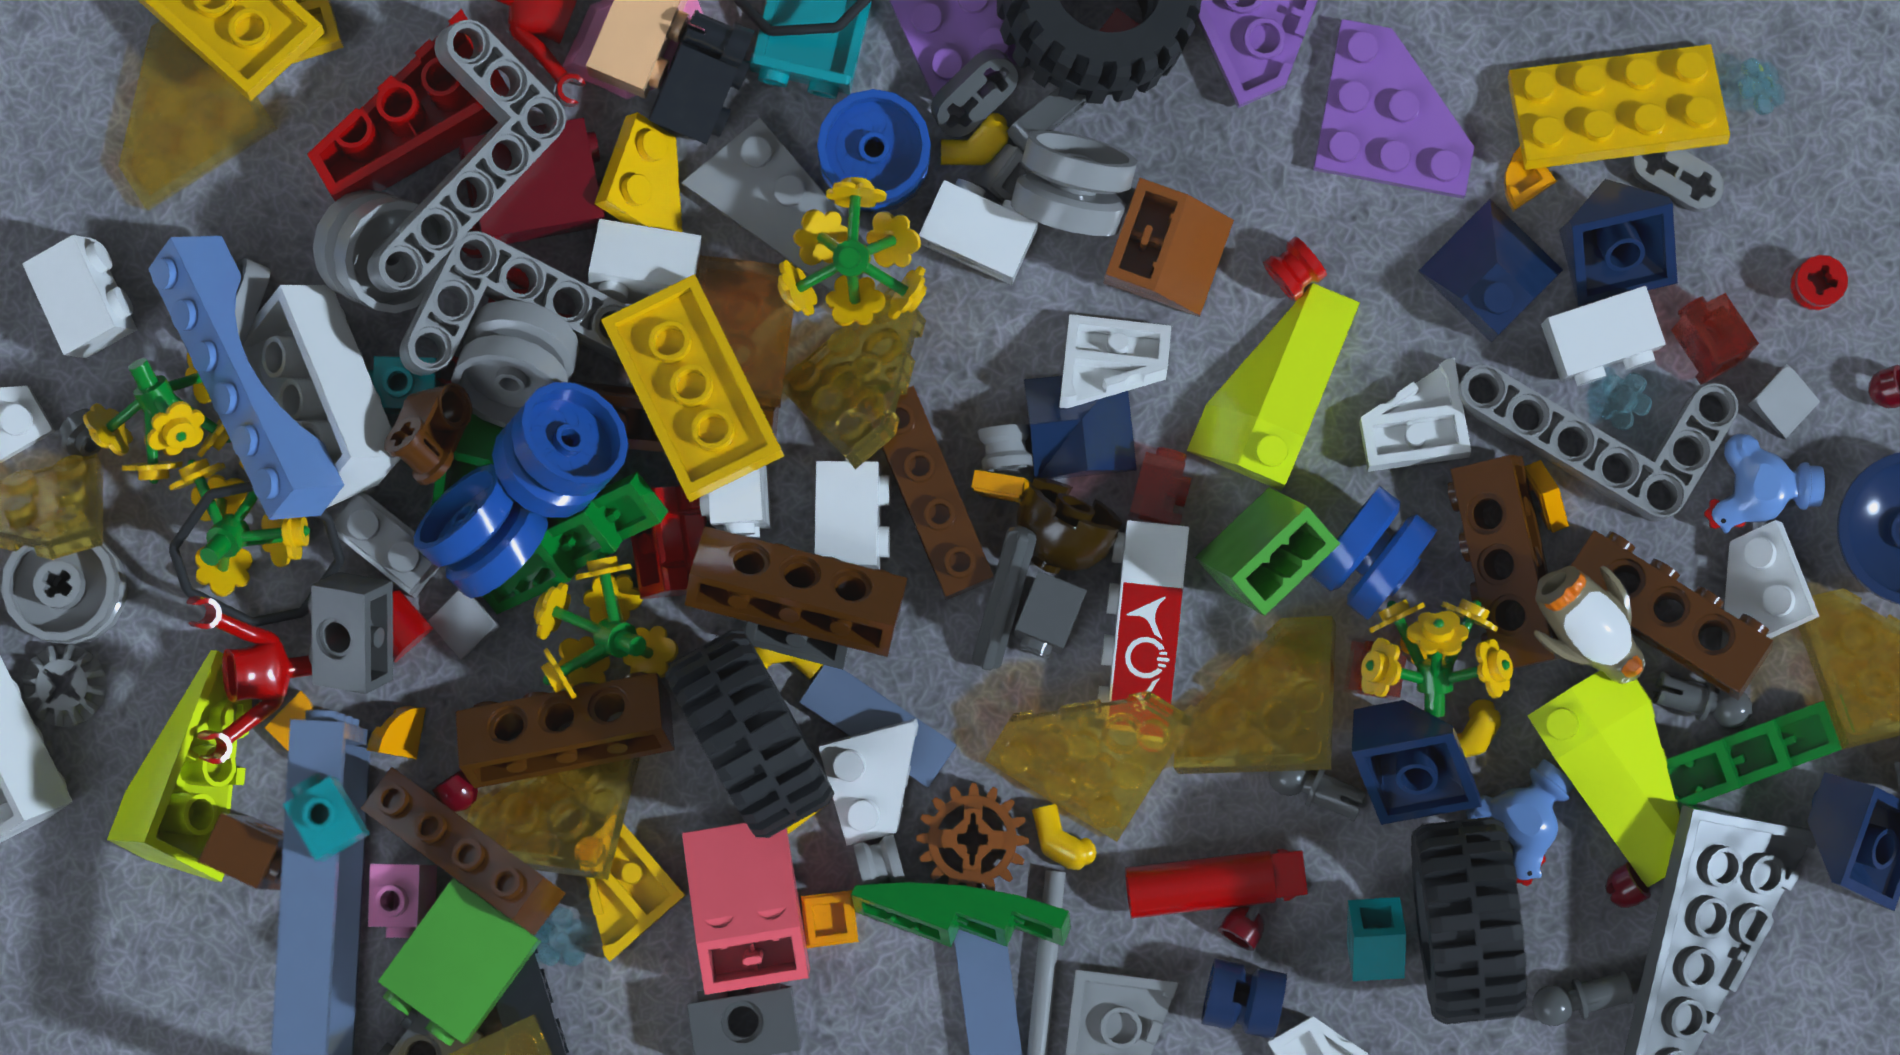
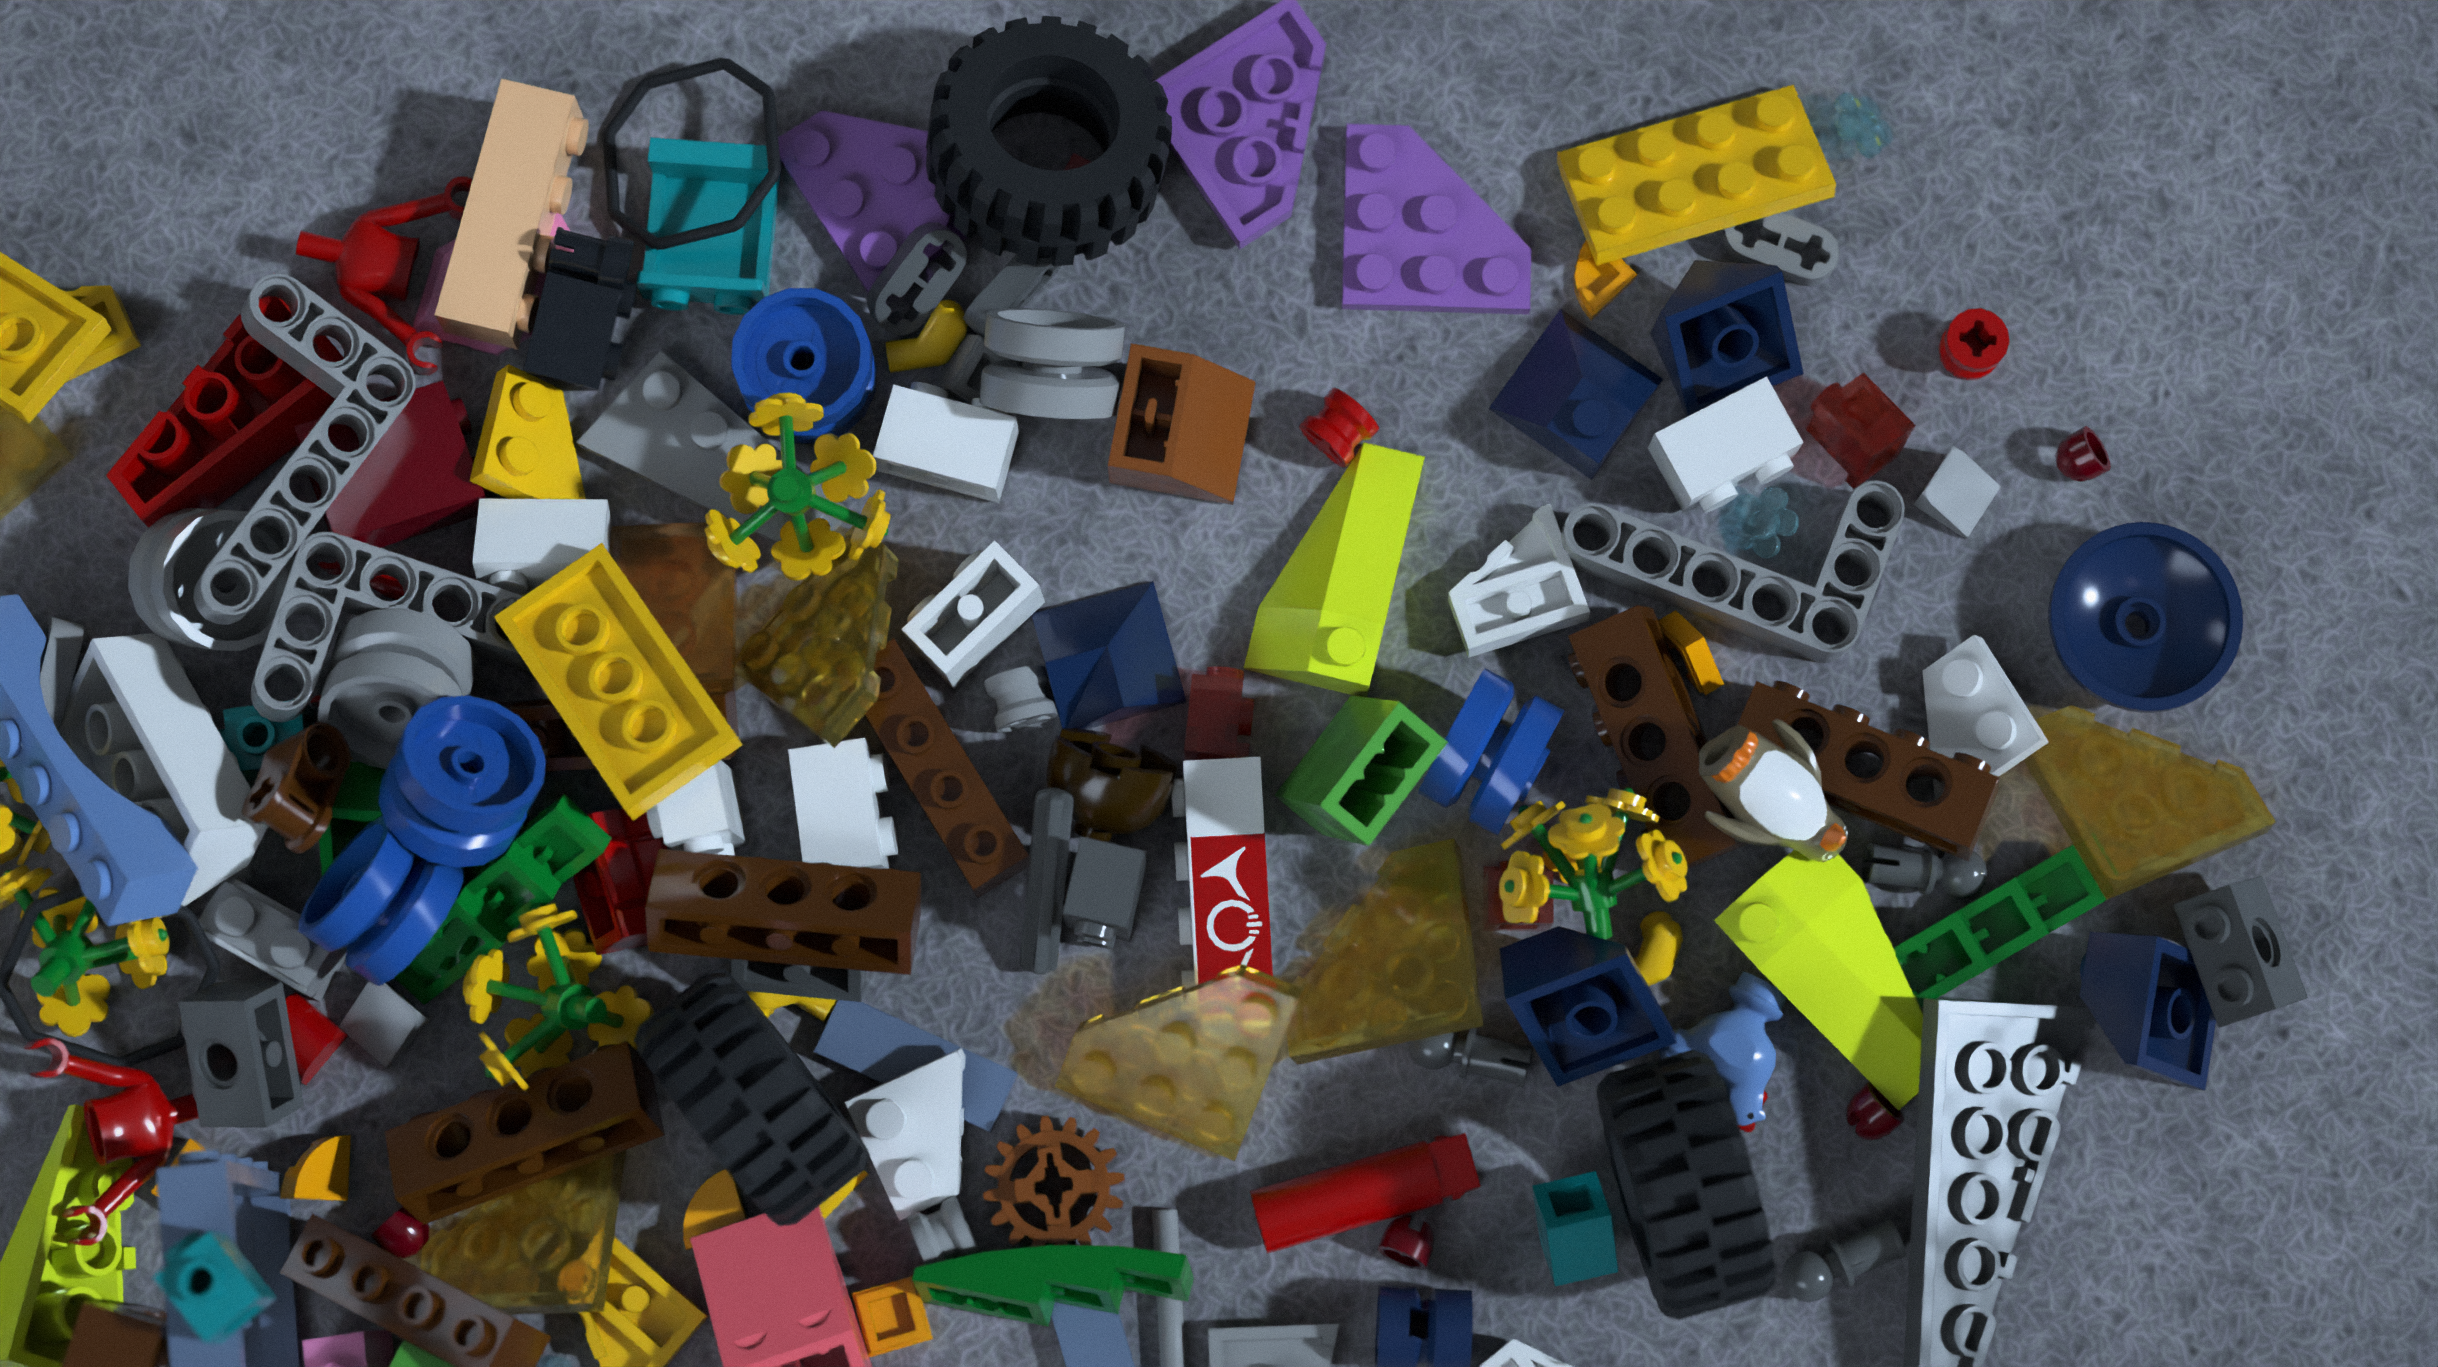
camera: 10 degrees left, 5 degrees down
(702, 811) = (713, 1206): none -> light orange tile
(978, 374) = (972, 613): none -> white brick
(999, 486) = (1019, 745): light orange tile -> none
(1058, 844) = (1163, 1176): yellow arm -> none
(1111, 358) = (1132, 569): white wing -> none
(1762, 486) = (1950, 597): medium blue animal -> none

